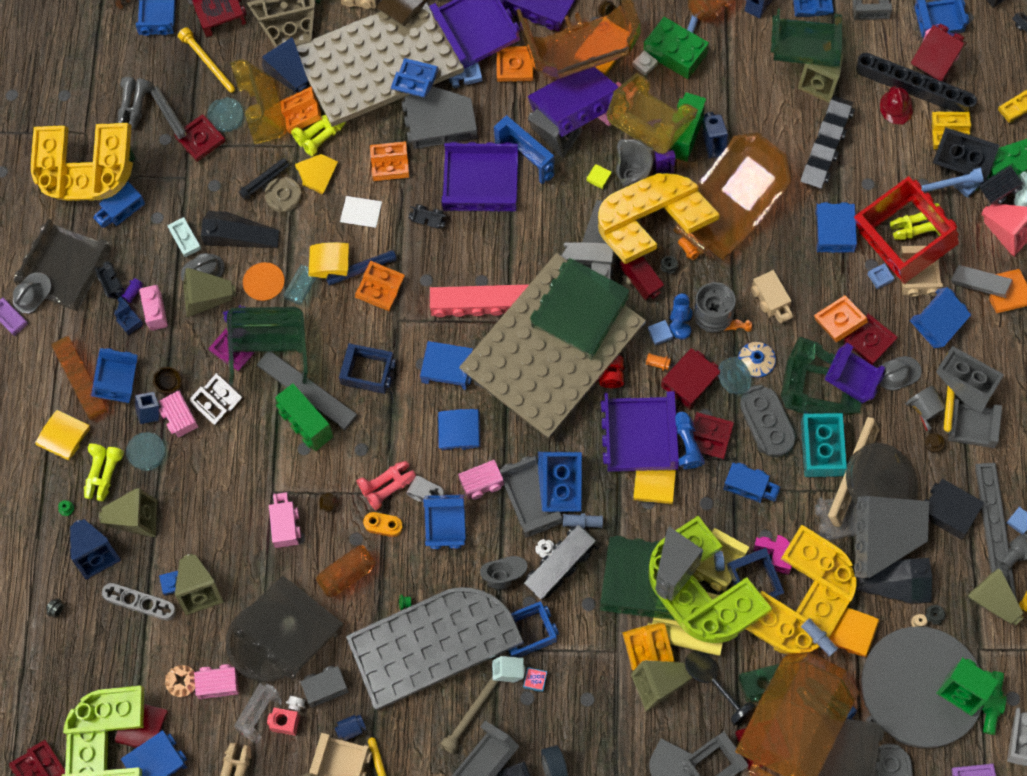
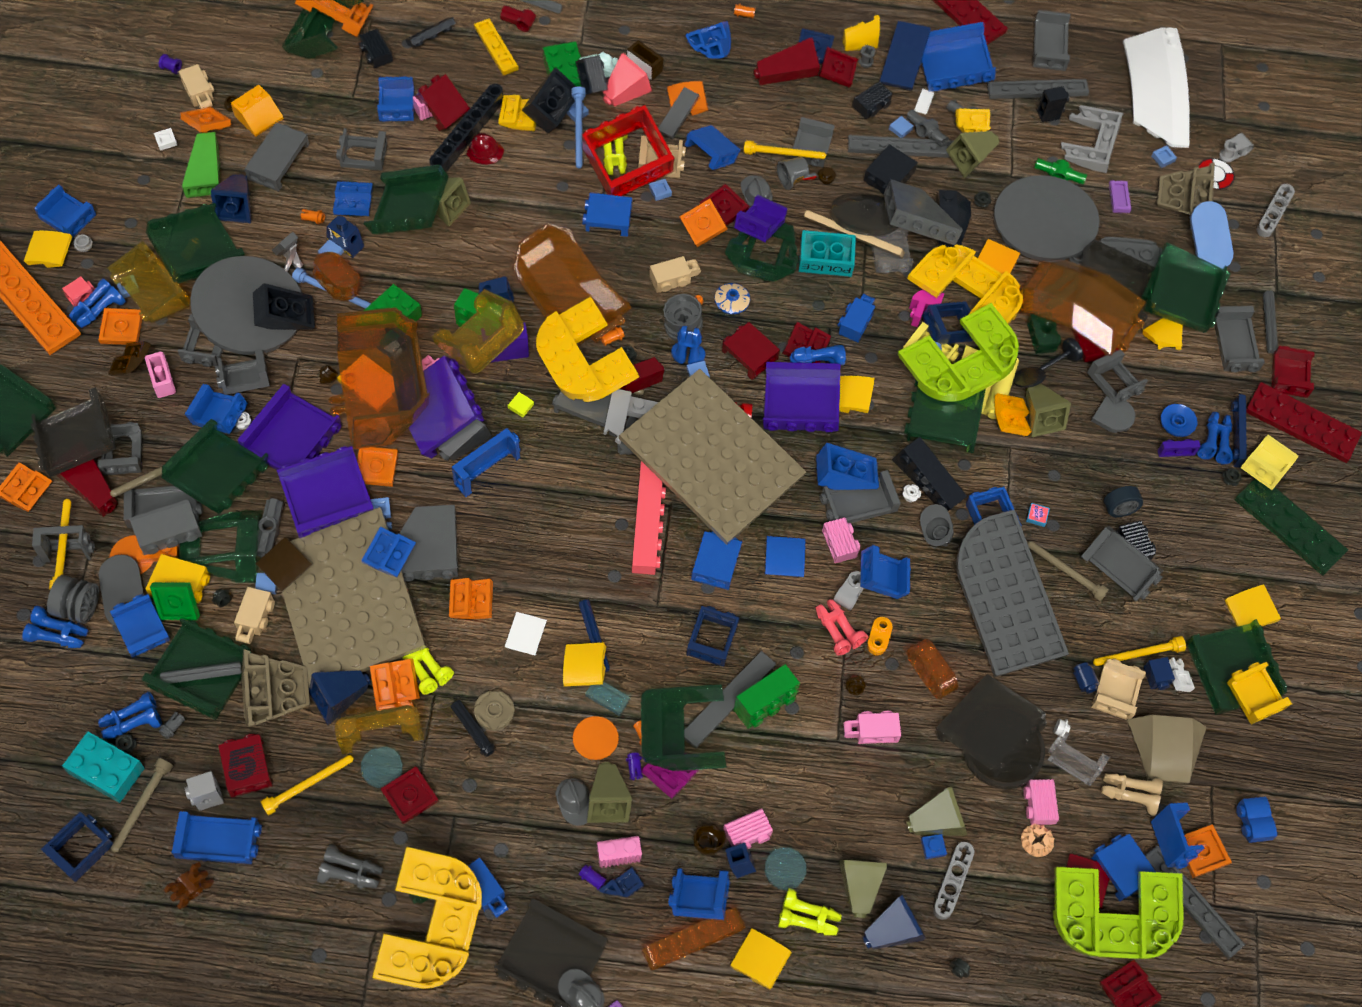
camera: 95 degrees left, 5 degrees down
(68, 510) = (844, 962): green piece -> none
(112, 287) = (588, 898): black hinge -> none
(168, 113) = (372, 827): dark grey axle -> none
(184, 237) = (533, 817): light aqua plate -> none
(216, 399) = (731, 791): slope -> none
(231, 230) = (531, 764): black wedge -> none
(292, 723) = (1085, 732): coral brick -> none
(316, 172) = (473, 672): yellow slope -> none
(324, 686) = (1047, 697): dark grey brick -> none
(379, 286) = (619, 618): orange slope -> none
(404, 602) = (961, 621): green piece -> none
(420, 214) = (546, 558): black hinge -> none
(480, 177) = (505, 512): dark purple panel -> none
(508, 669) = (1033, 532): light aqua brick -> none
(580, 307) = (686, 417): clear green panel -> none
(583, 520) = (886, 456): sand blue pin -> none
(634, 161) = (521, 361): dark grey piece -> none
(658, 361) = (729, 375): orange pin -> none
(677, 564) = (956, 365): dark grey slope -> none
(734, 375) = (752, 312): clear light blue tile -> none
(767, 421) = (795, 297): dark grey tile -> none
(819, 637) = (1012, 276): sand blue pin -> none
(827, 142) = (510, 204): brick -> none
(916, 623) = (987, 213): tan piece -> none
(967, 686) = (1059, 175): green brick -> none
(969, 378) = (776, 132): dark grey slope -> none

